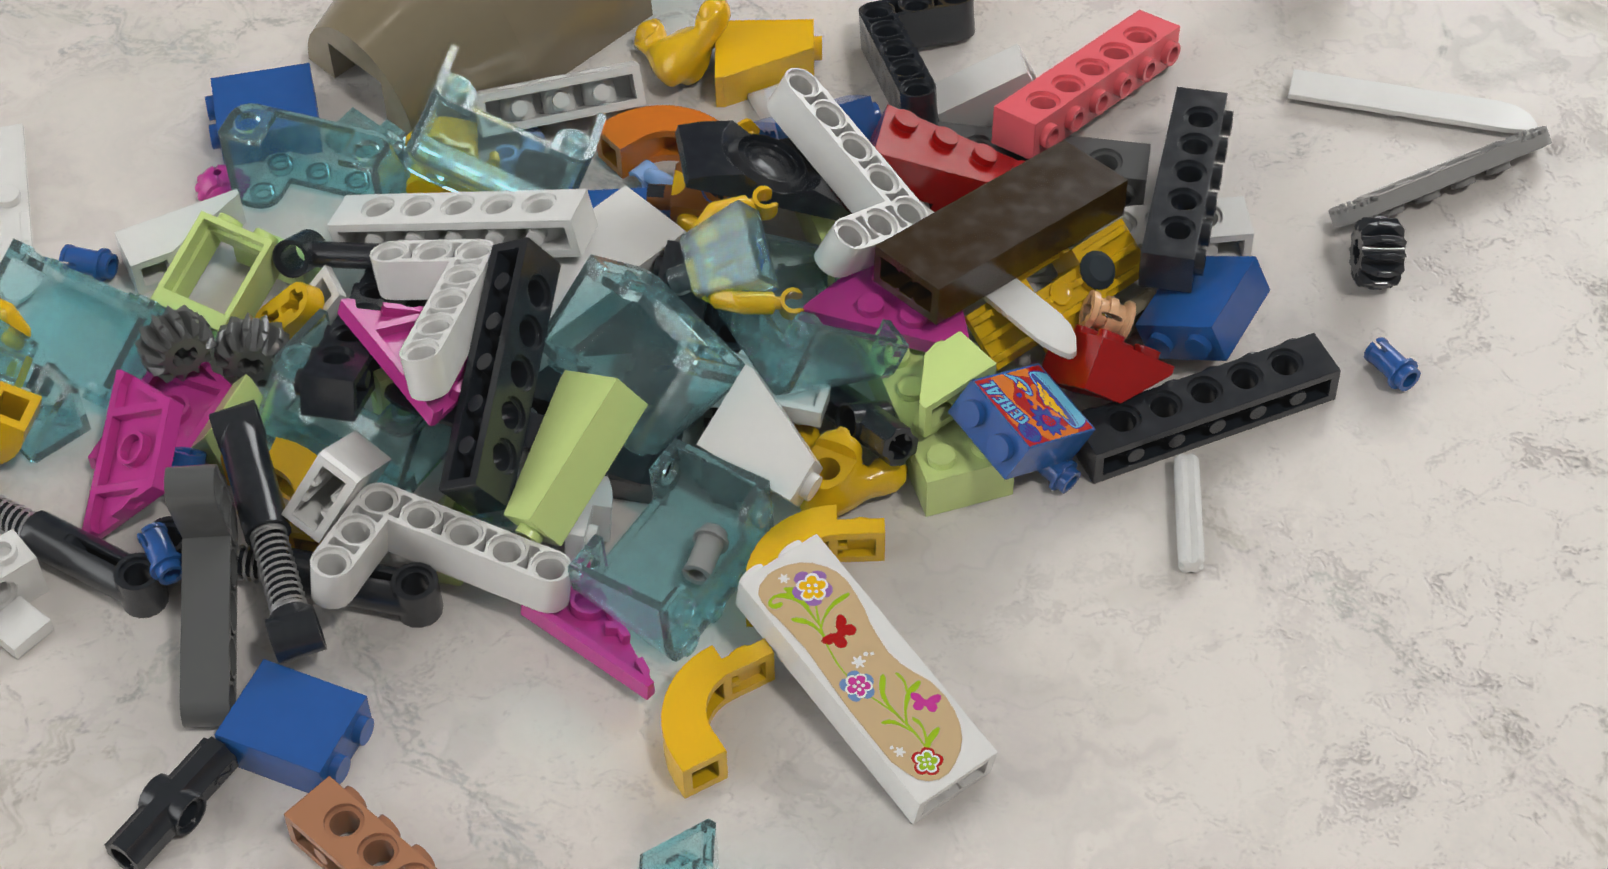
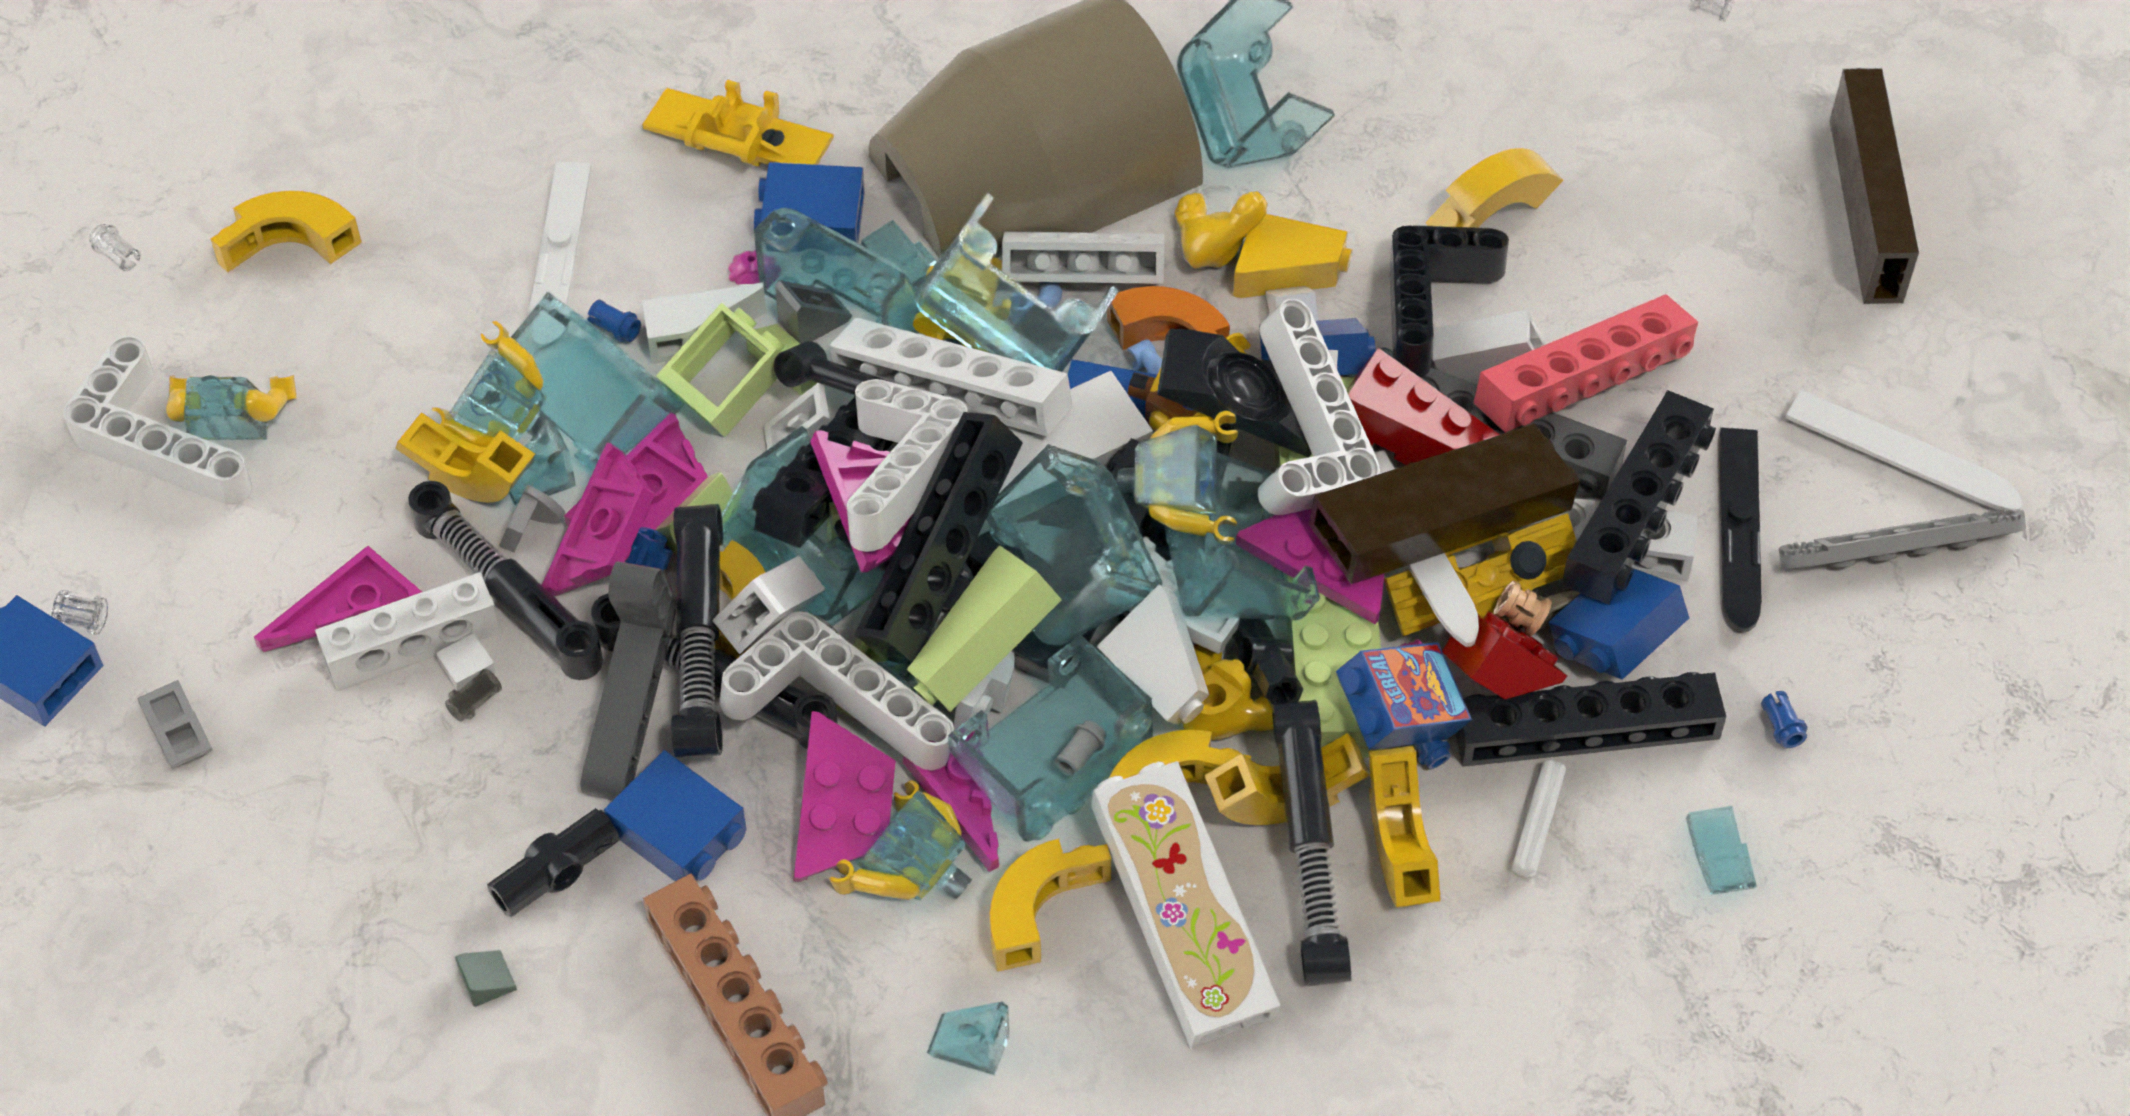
camera: 15 degrees right, 5 degrees up
(29, 666) = (471, 696): none -> clear smoke pin
(51, 456) = (532, 506): none -> light grey tile
(161, 553) = (600, 628): blue pin -> none
(164, 56) = (737, 127): none -> yellow piece
(175, 343) = (665, 428): dark grey gear -> none
(249, 346) = (732, 444): dark grey gear -> none
(289, 207) = (808, 310): none -> dark grey slope
(293, 306) = (775, 419): yellow beam -> none
(469, 664) = (842, 798): none -> dark pink wing
(558, 700) = (910, 852): none -> clear light blue torso
(929, 482) = (1310, 836): none -> black piece
(932, 545) = (1255, 792): none -> yellow arch
(945, 375) = (1346, 632): yellowish green slope -> none
(1065, 573) = (1399, 830): none -> yellow arch
(1282, 204) = (1740, 527): none -> black piece
(1375, 501) = (1719, 850): none -> clear light blue slope
(1377, 252) = (1807, 604): black gear -> none

